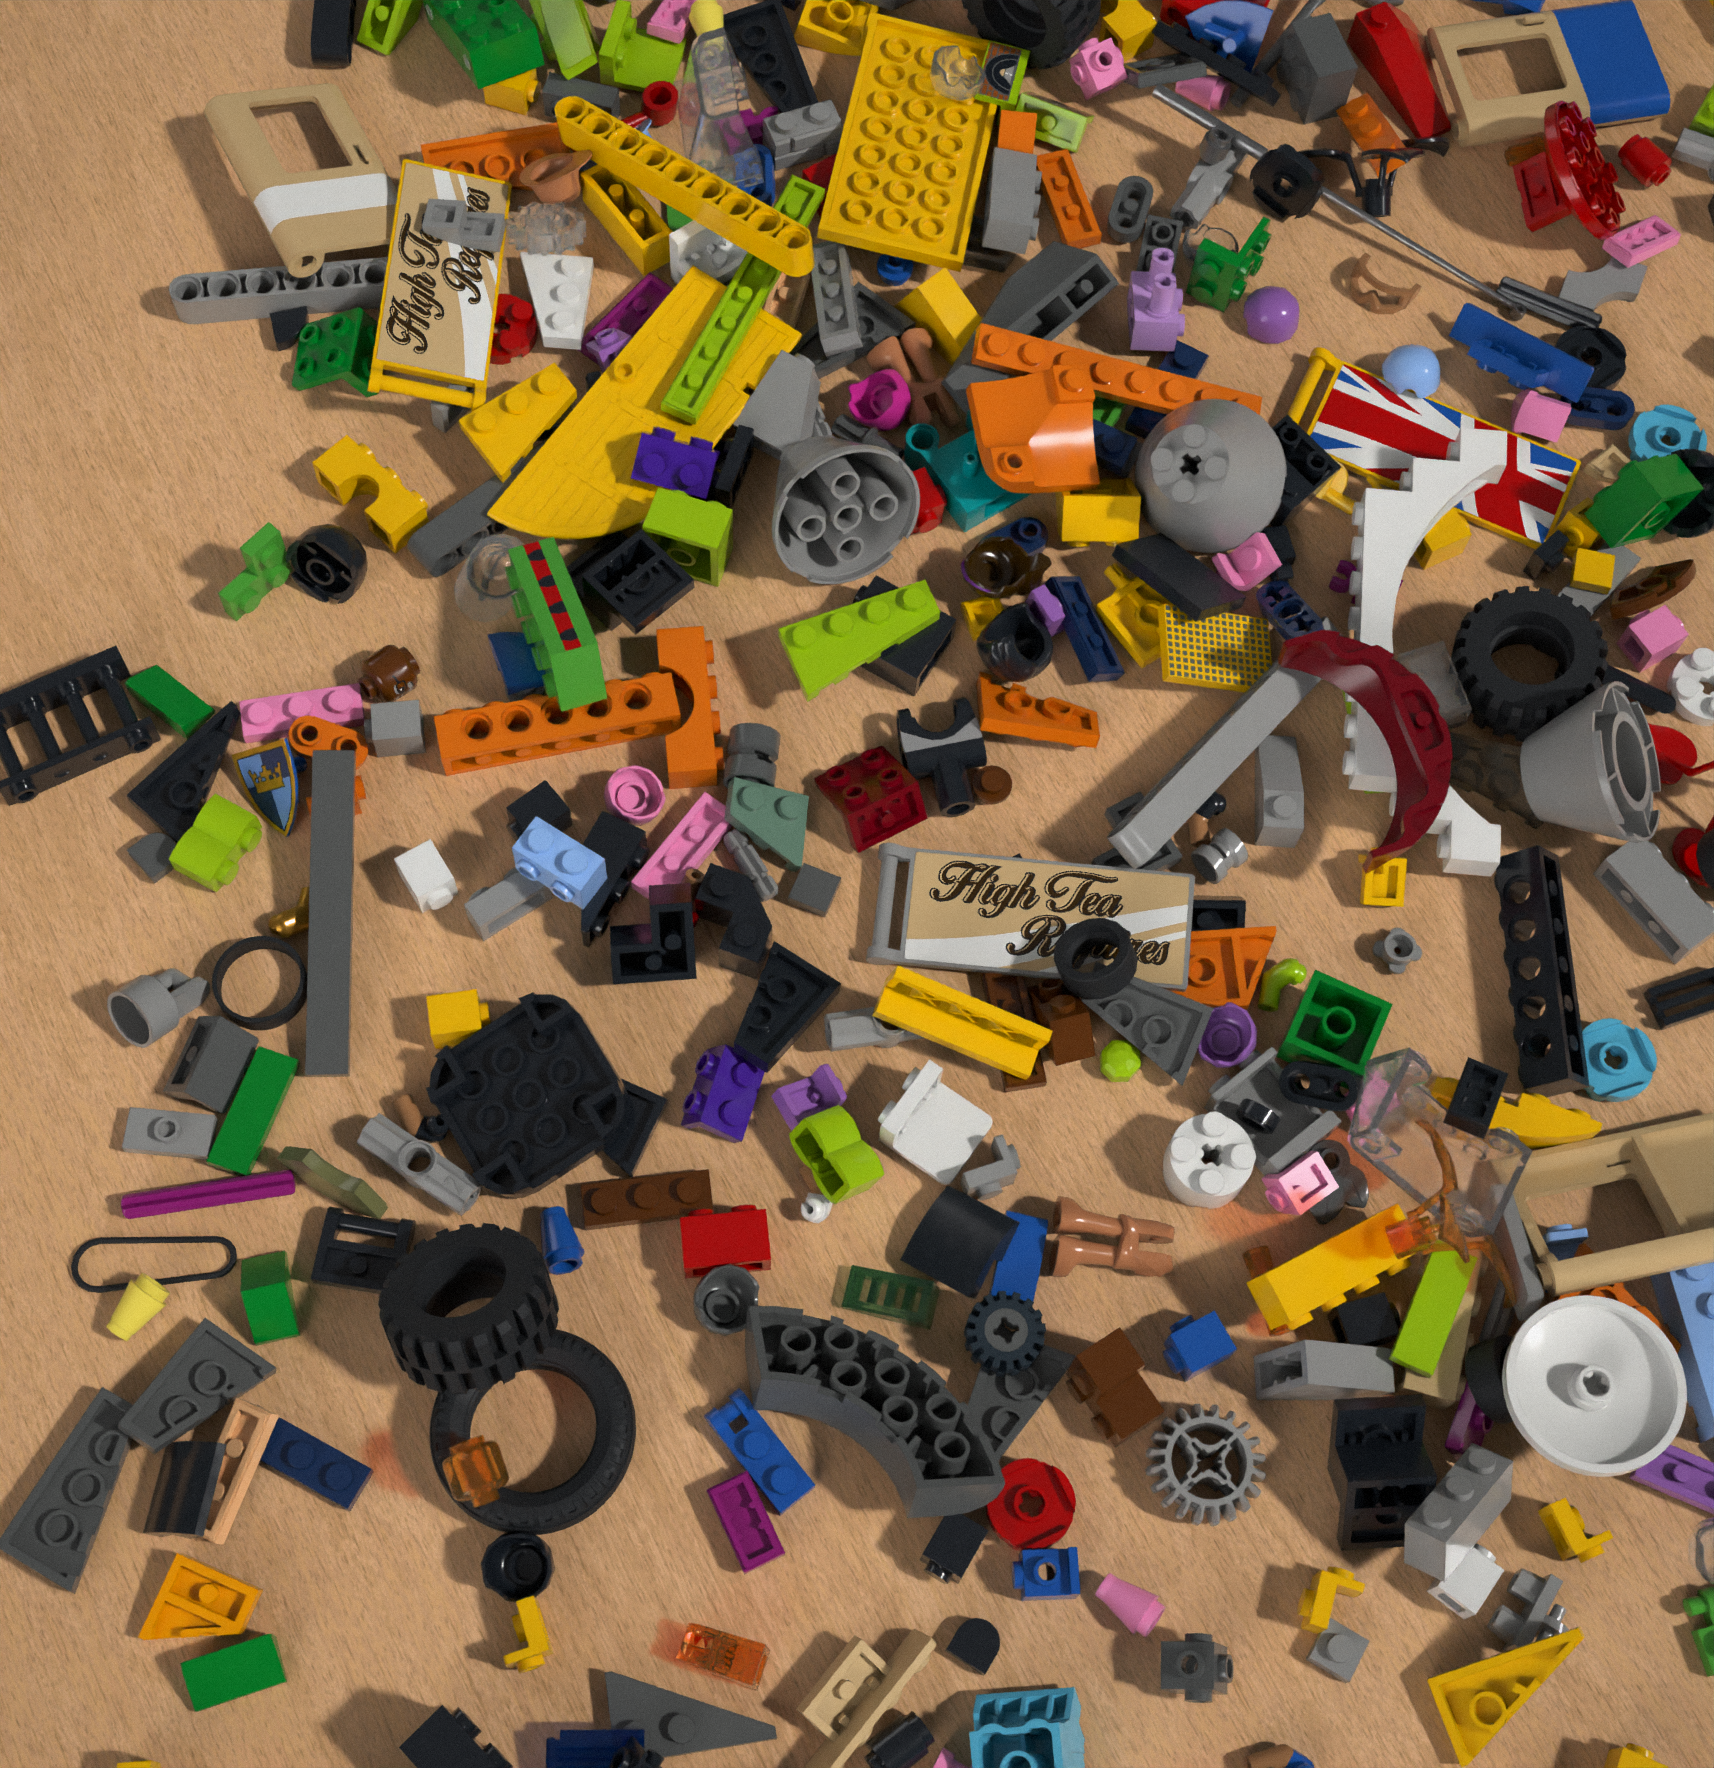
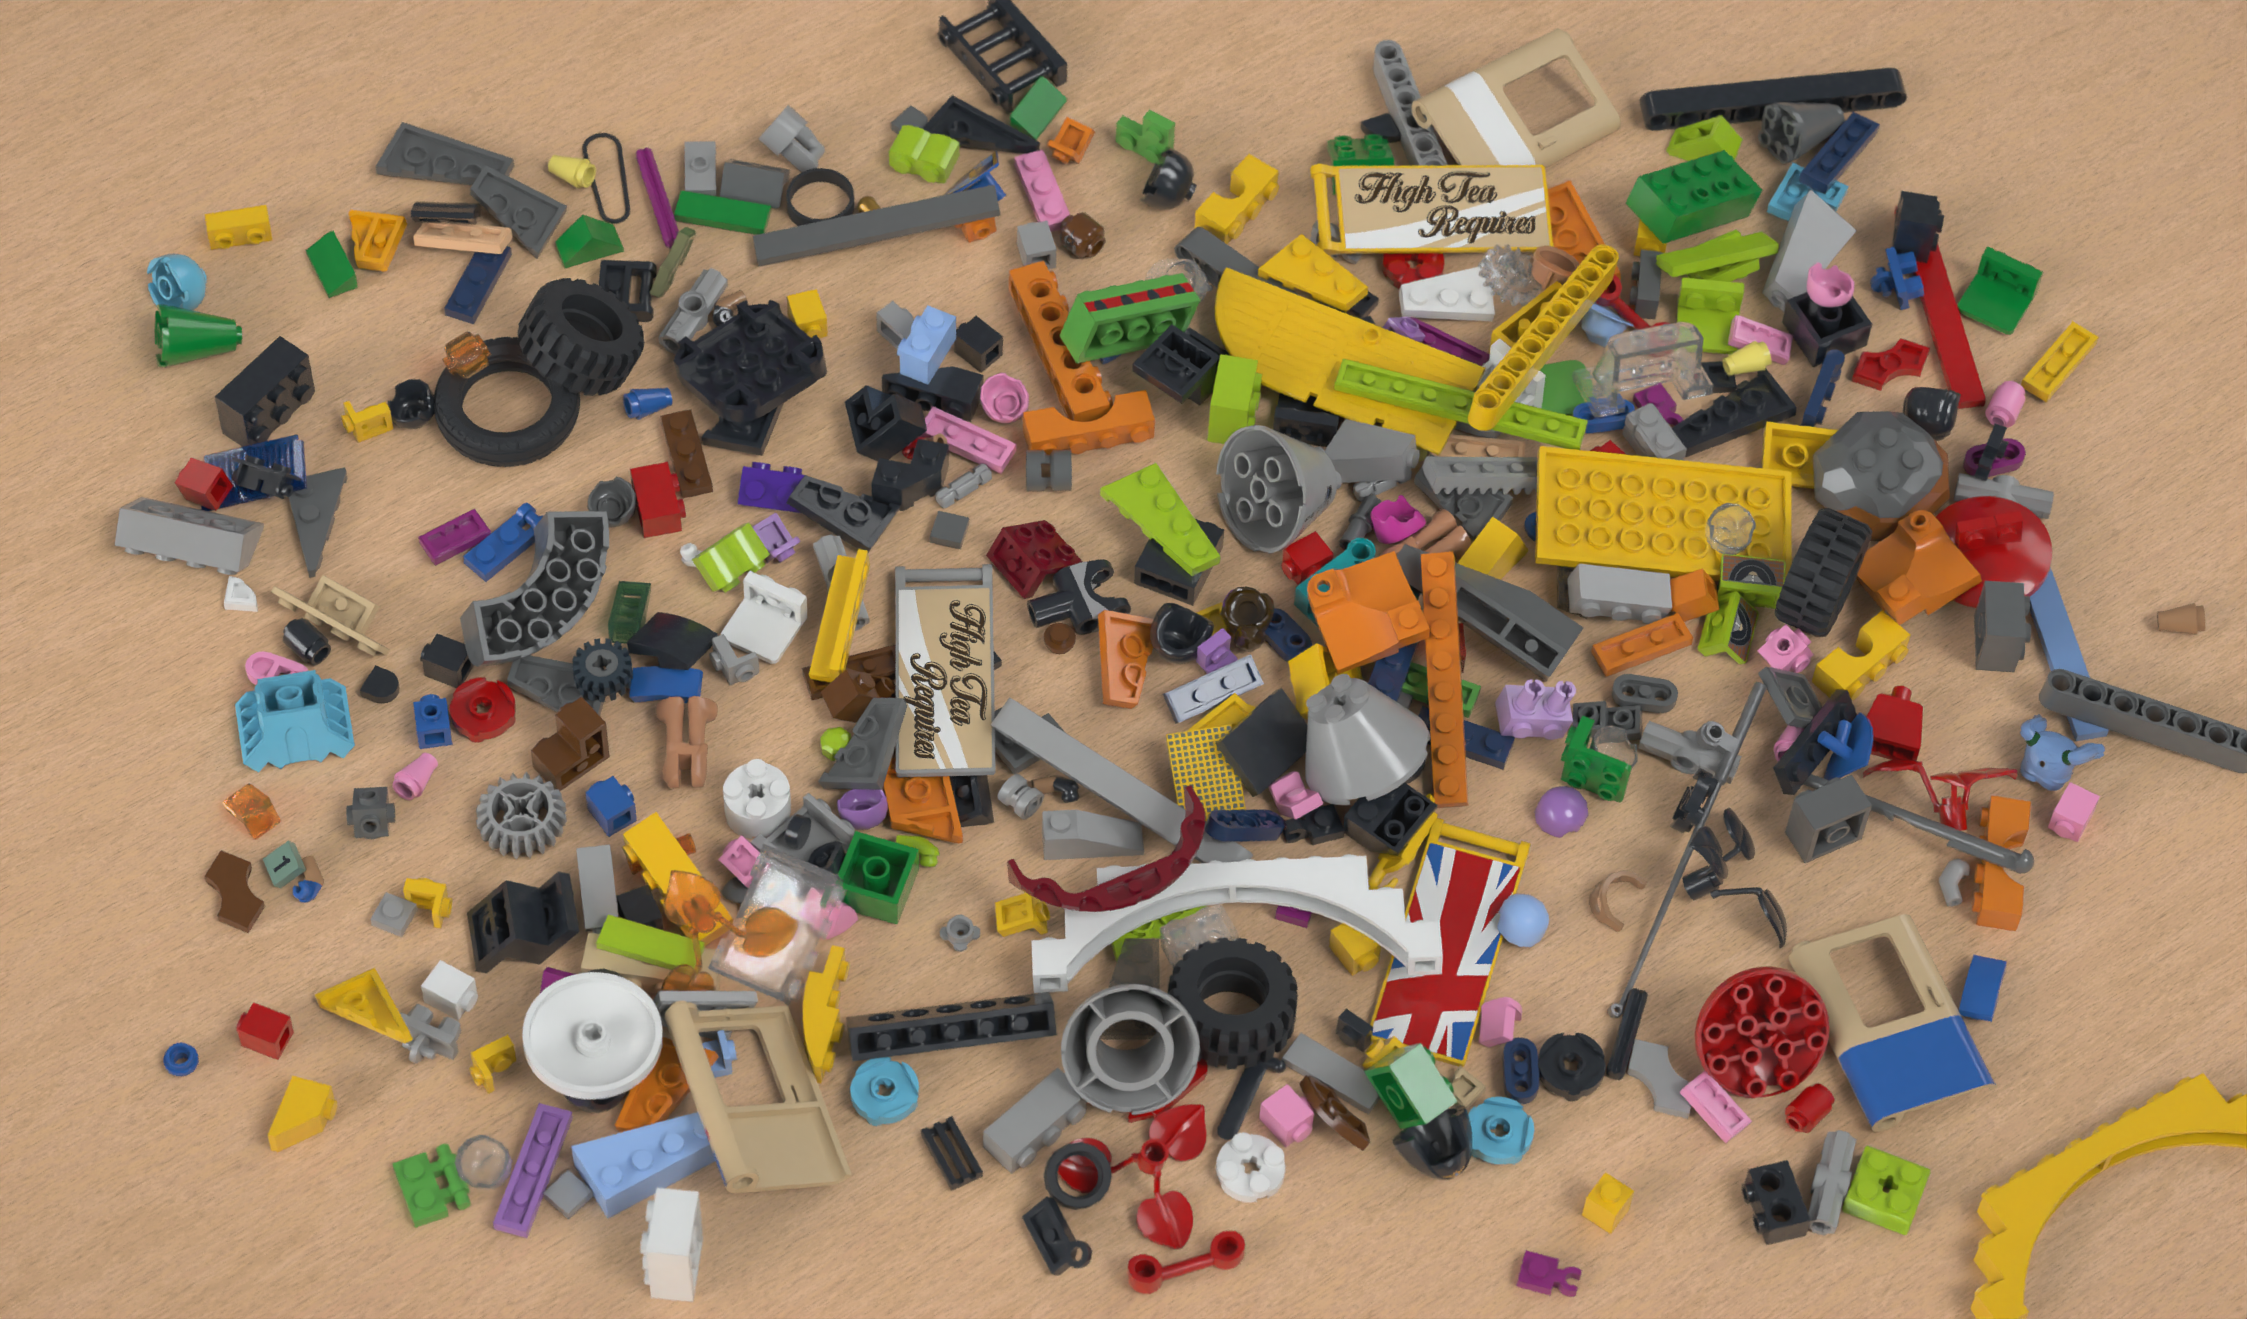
camera: 85 degrees right, 10 degrees down
(235, 665) = (1071, 141): none -> orange bracket
(329, 737) = (1016, 205): orange plate -> none
(426, 876) = (917, 282): white brick -> none
(456, 225) = (1489, 214): light grey slope -> none
(675, 462) = (1293, 376): dark purple bracket -> none
(724, 1655) = (360, 535): clear orange leg -> none
(770, 817) = (1001, 490): sand green wing -> none
(1088, 935) = (902, 710): black tyre -> none
(1370, 129) = (1770, 870): orange plate -> none
(1401, 67) = (1877, 892): red wedge -> none
(1458, 1512) = (494, 965): light grey brick -> none
(1475, 1098) = (824, 964): black plate -> none
(1519, 354) = (1549, 992): blue bracket -> none
(1592, 571) = (1343, 1063): yellow tile -> none

